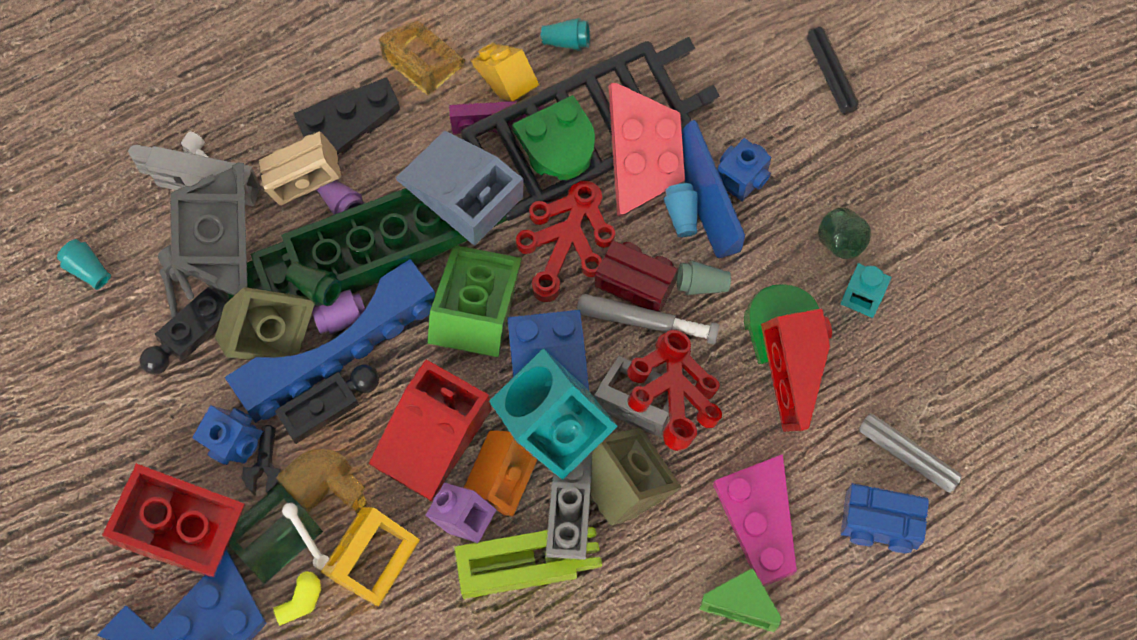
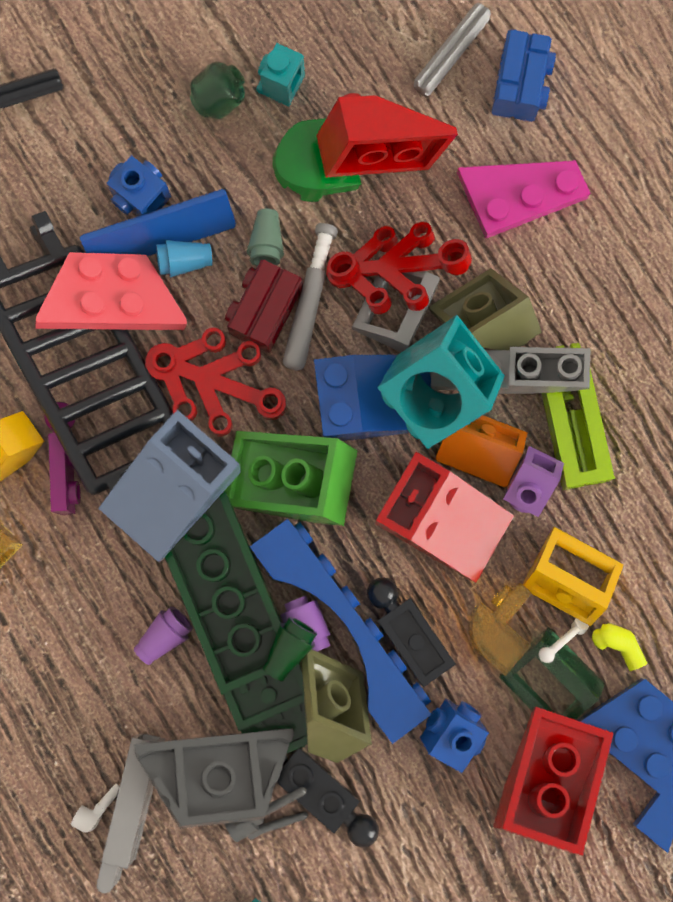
camera: 90 degrees left, 15 degrees up
(264, 463) = (476, 695): black bar -> none
(299, 168) = (128, 682): tan brick -> none
(350, 114) = (55, 639): black wing -> none
(558, 139) = (103, 383): green slope -> none
(743, 601) = (607, 210): bright green slope -> none

